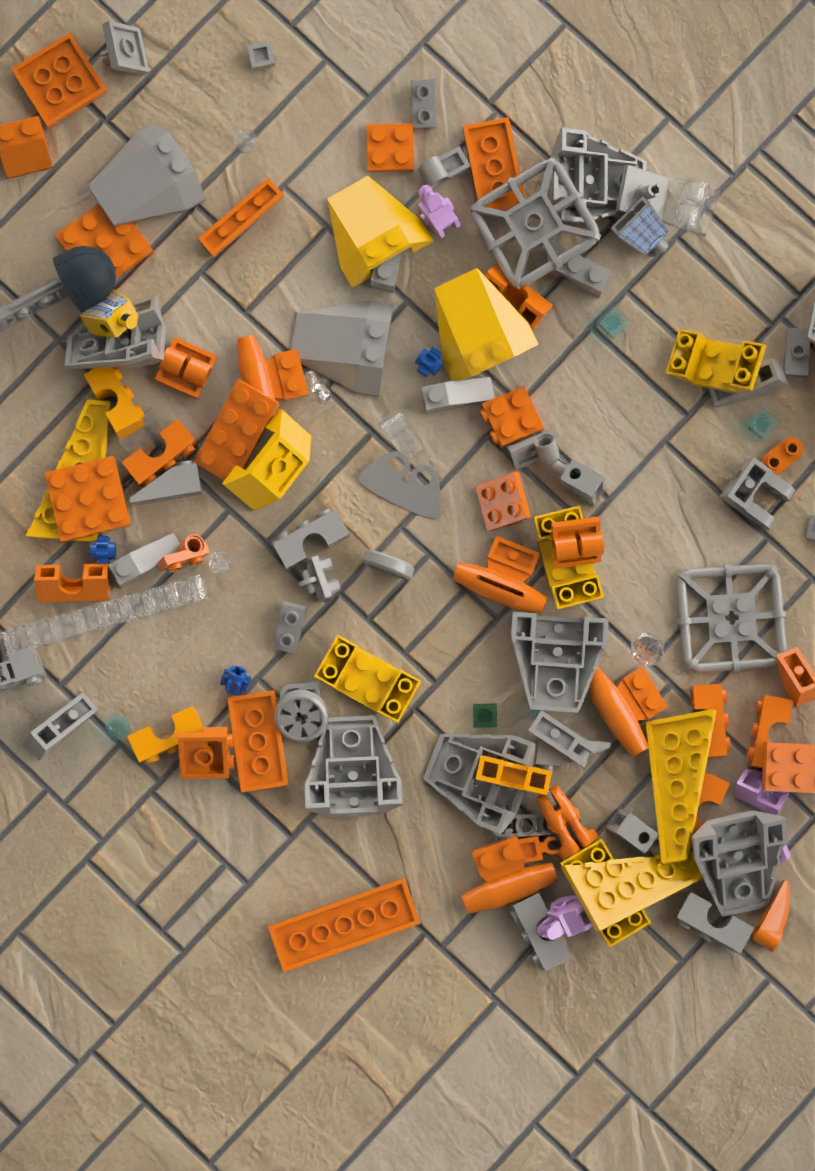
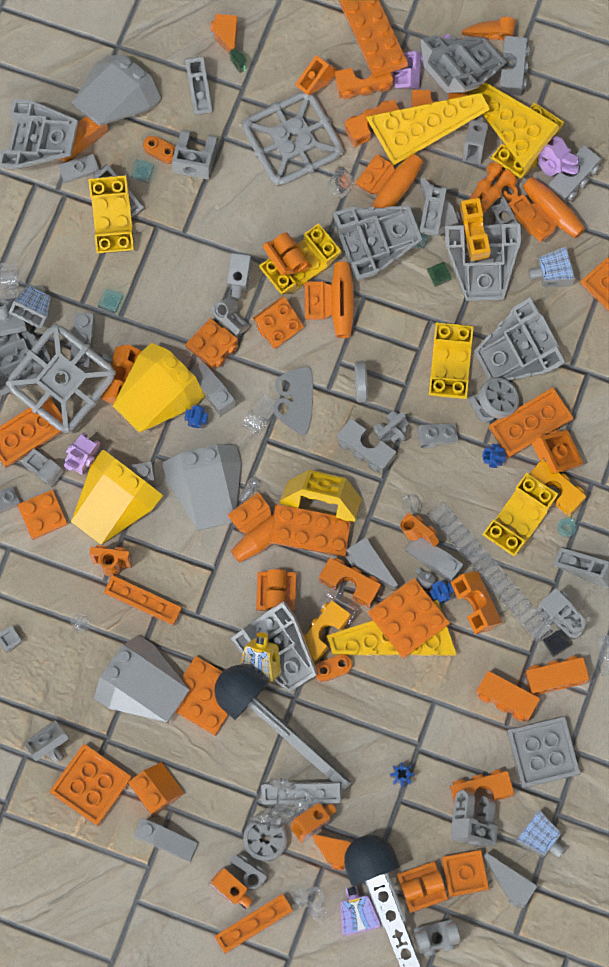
camera: 105 degrees left, 10 degrees down
(73, 394) = (333, 669): none -> orange plate
(127, 539) = (425, 579): none -> light grey piece
(149, 675) = (521, 515): none -> yellow slope
(308, 191) = (119, 557): none -> orange plate
(433, 852) = (554, 269): none -> light grey torso

